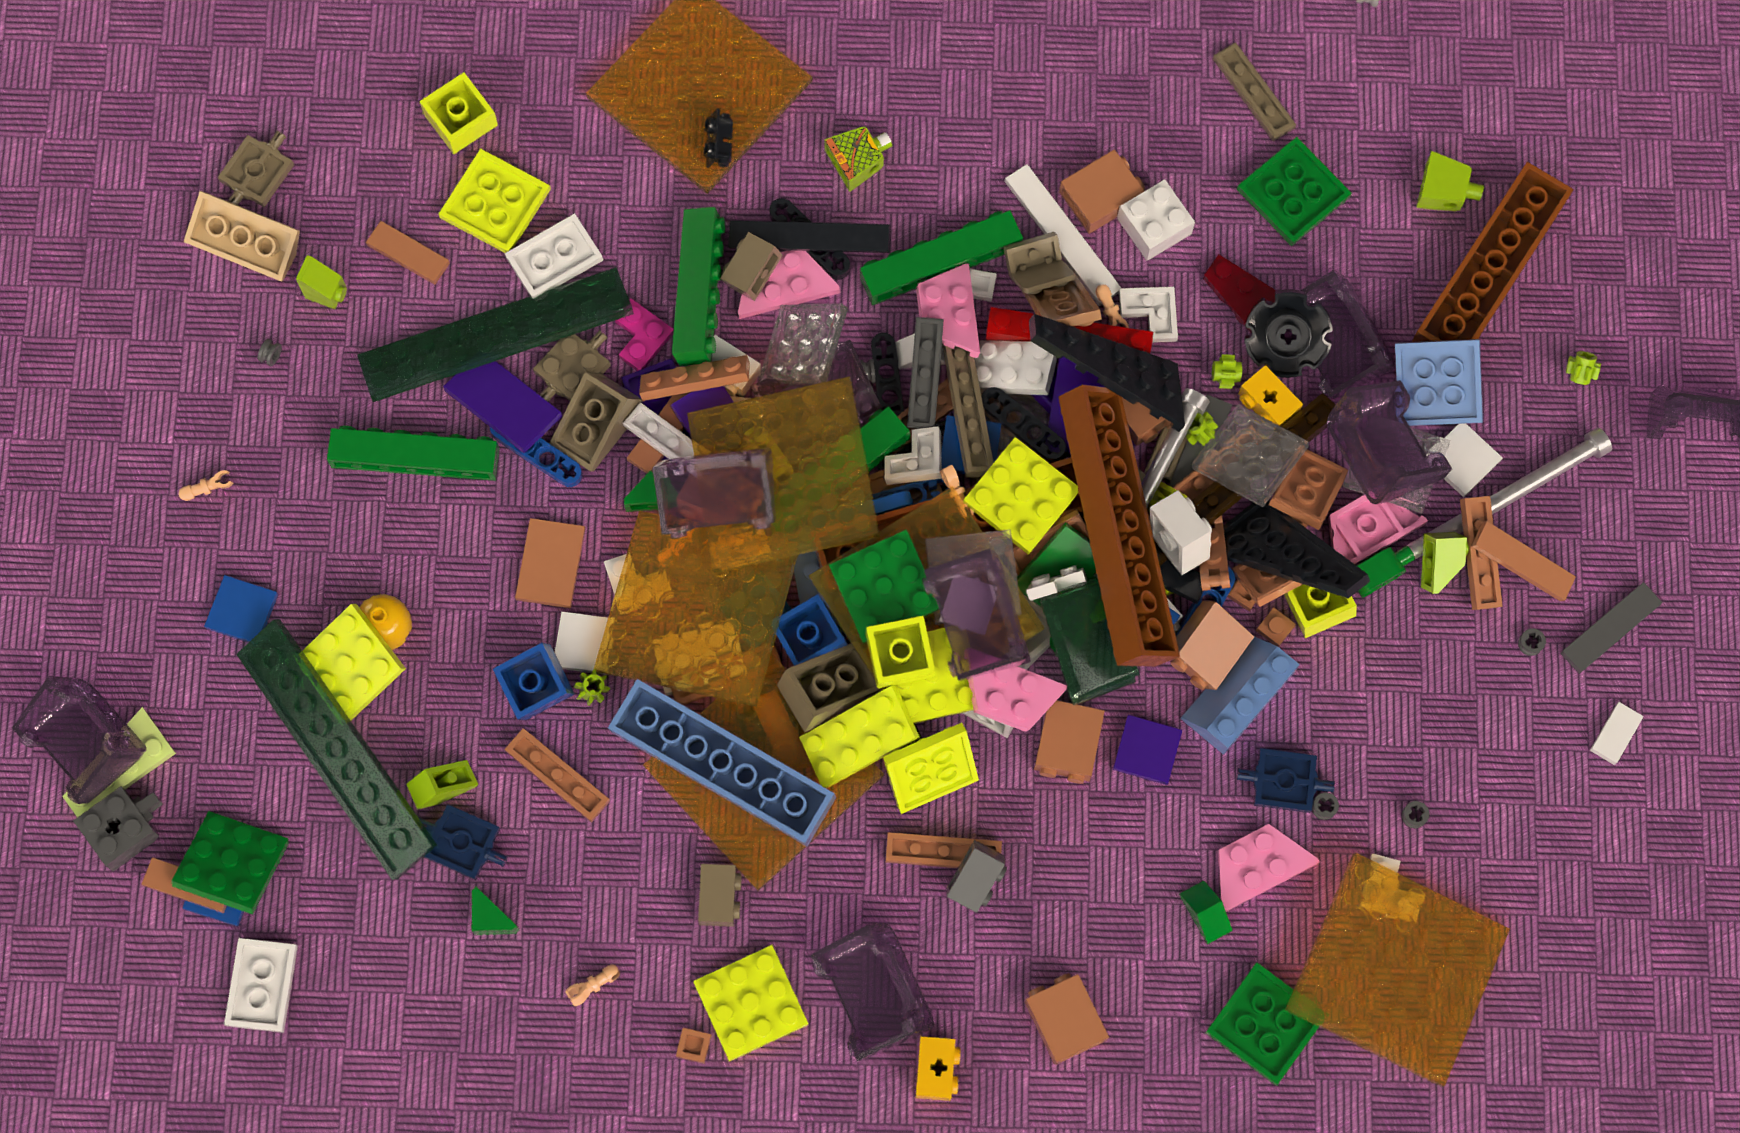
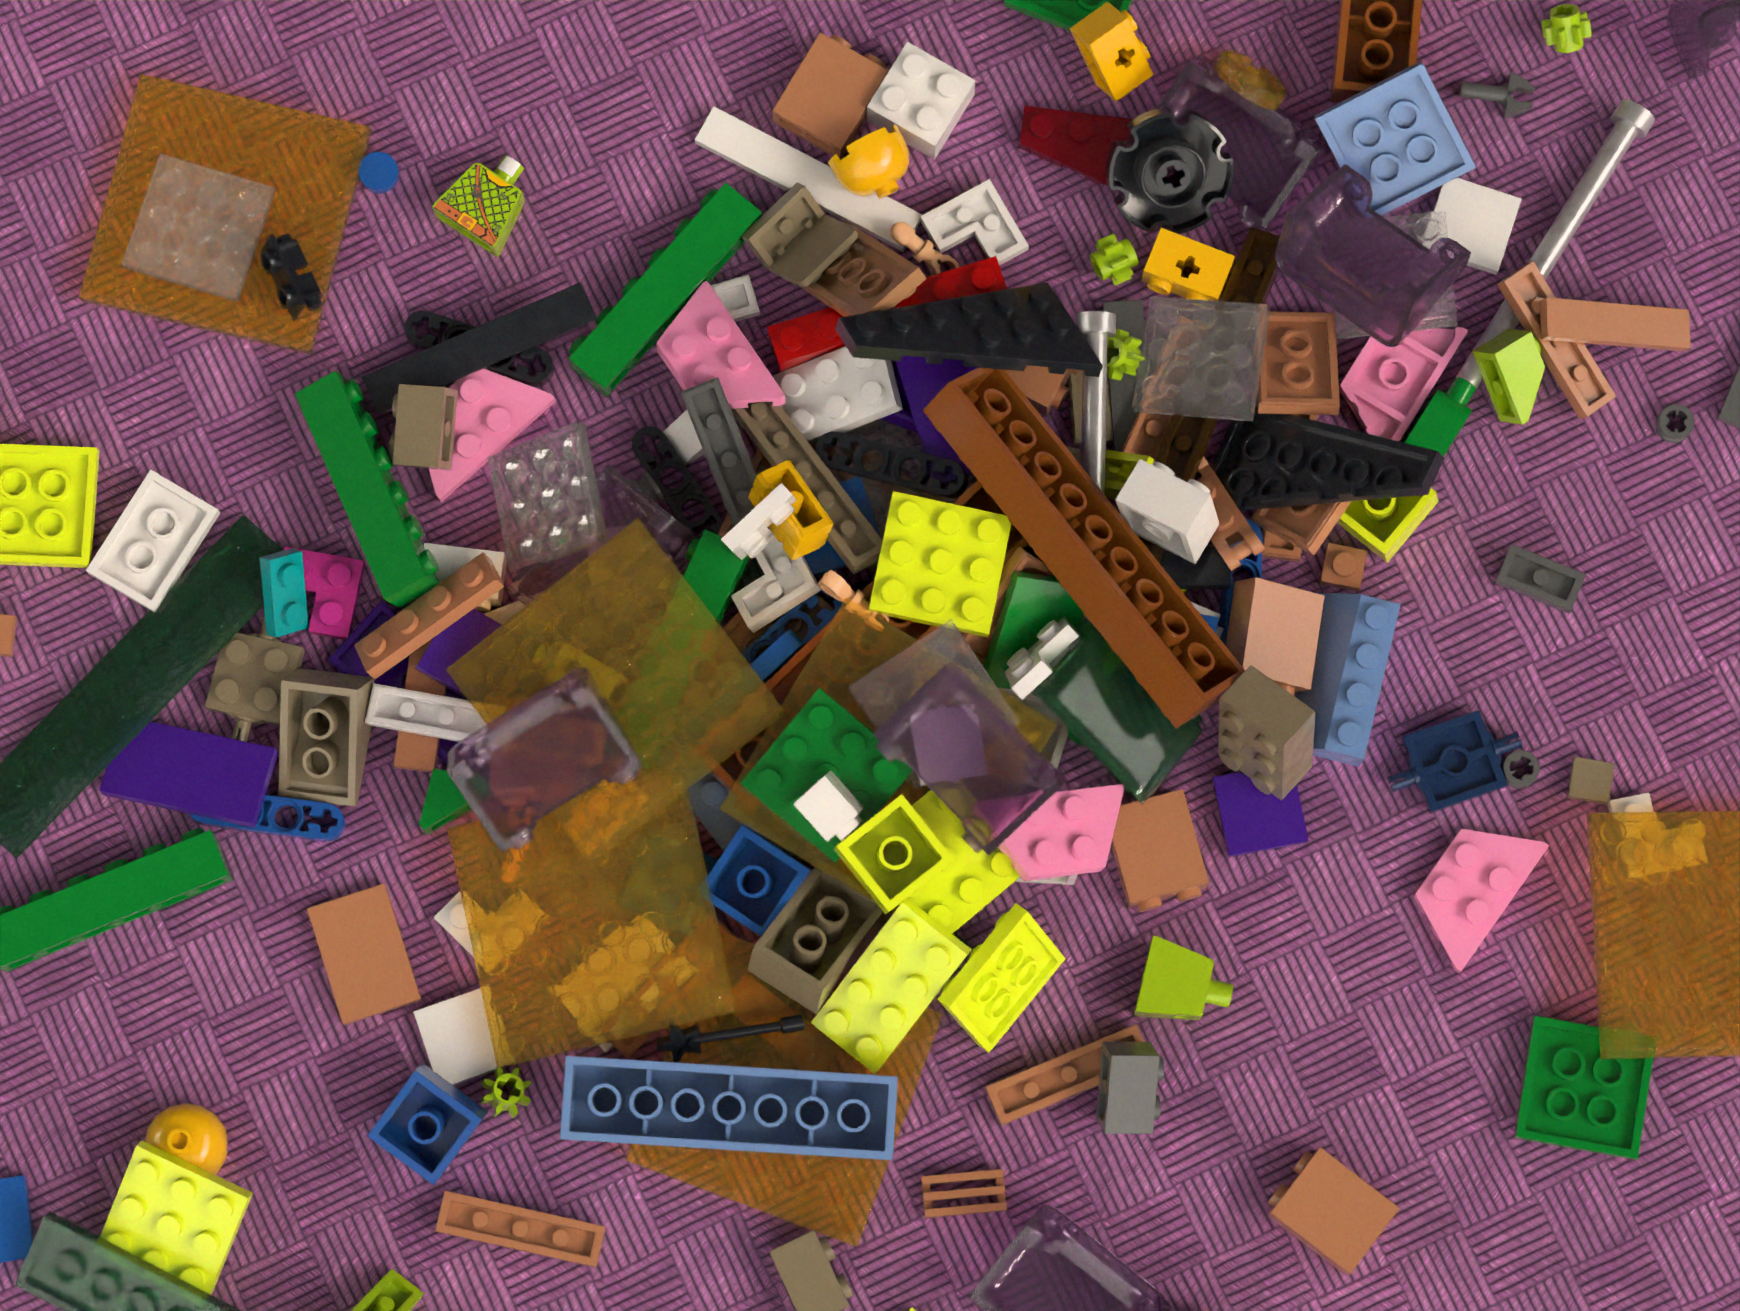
camera: 25 degrees left, 5 degrees up
(615, 323) = (284, 592): none -> teal plate
(678, 85) = (198, 227): none -> clear plate
(719, 710) = (690, 1038): none -> black piece
(804, 107) = (379, 172): none -> blue tile
(844, 881) = (998, 1190): none -> nougat tile
(874, 601) = (830, 807): none -> white brick
(912, 418) = (751, 532): none -> white plate
(946, 419) = (808, 524): none -> yellow brick
(1040, 829) = (1178, 983): none -> lime torso
(1106, 241) = (873, 163): none -> yellow cylinder
(1173, 699) = (1265, 733): none -> dark tan brick
(1206, 911) = (1438, 981): green slope -> none
(1289, 245) = (1112, 50): none -> yellow brick
(1366, 835) = (1590, 780): none -> dark tan tile
(1368, 308) = (1253, 84): none -> clear yellow tile
(1397, 694) = (1540, 578): none -> dark grey plate
(1423, 818) = (1625, 723): dark grey bush -> none
(1522, 389) = (1500, 94): none -> dark grey bar

